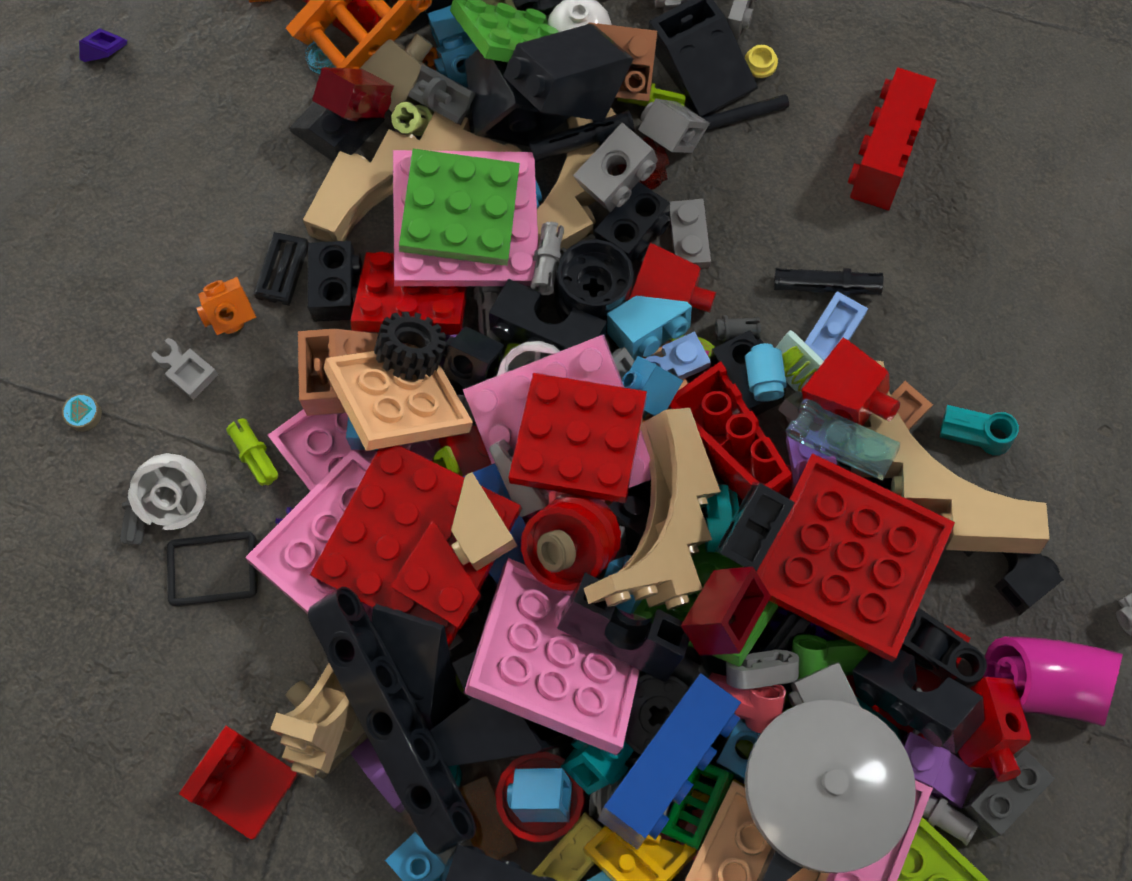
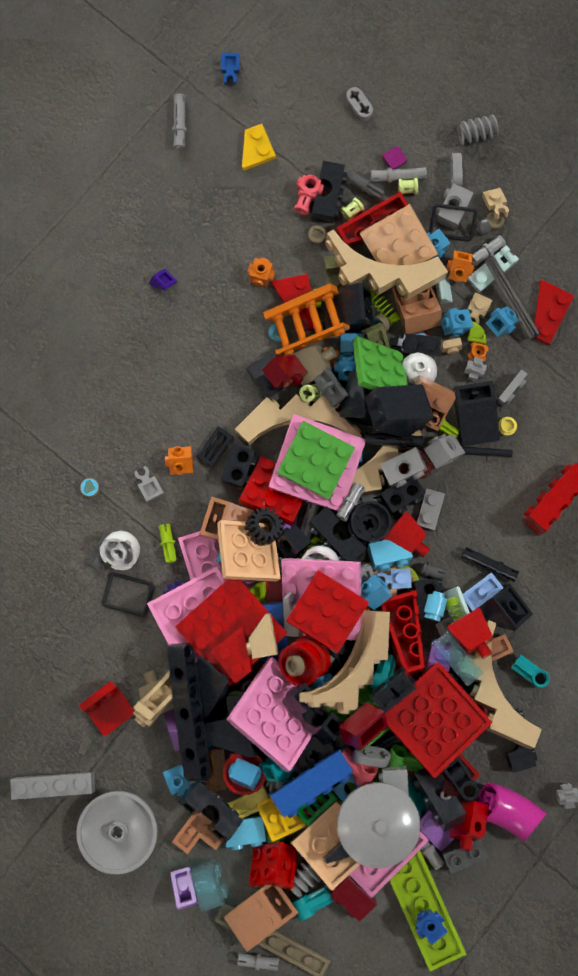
camera: 15 degrees right, 10 degrees up
(890, 337) = (506, 609): none -> black slope

